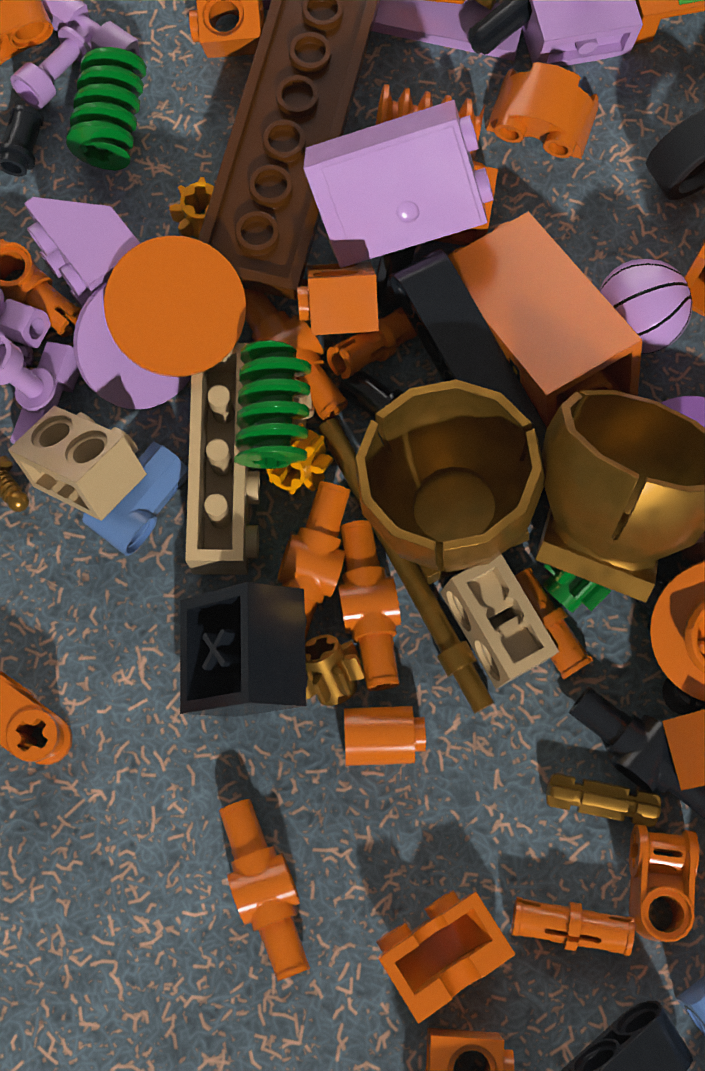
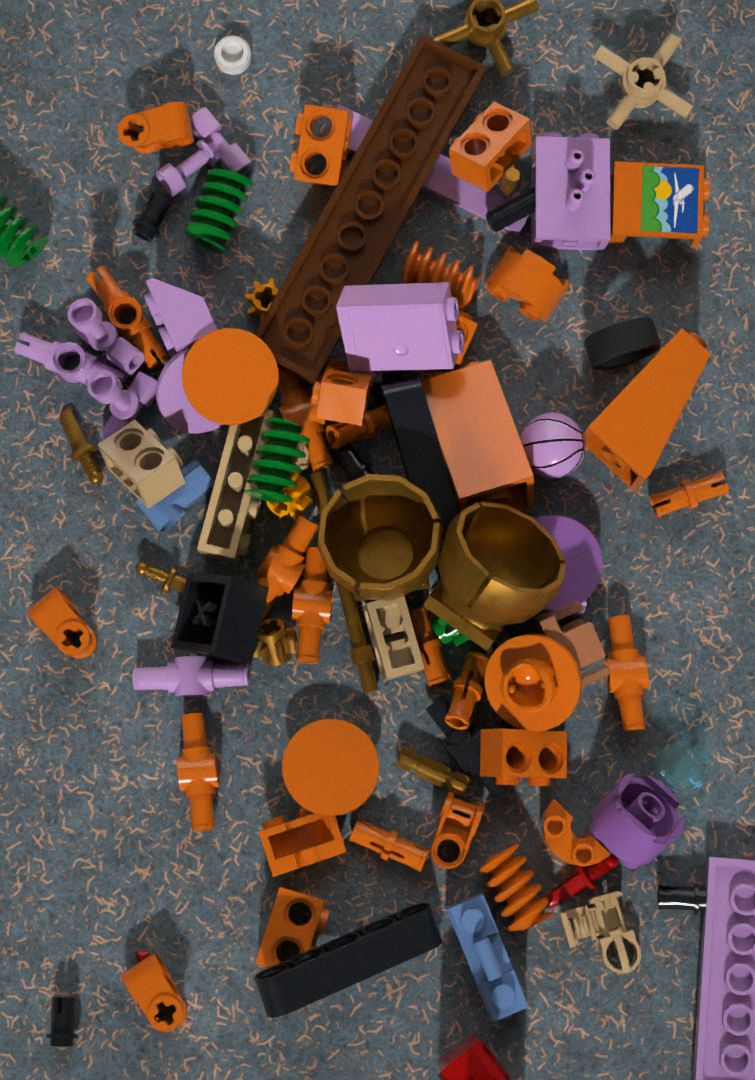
camera: 15 degrees right, 5 degrees up
(156, 619) = (170, 579): none -> pearl gold piece
(220, 749) = (191, 676): none -> lavender pin
(383, 735) = (298, 693): orange brick -> none
(458, 833) = (330, 767): none -> orange piece
(626, 699) = (460, 708): none -> orange pin

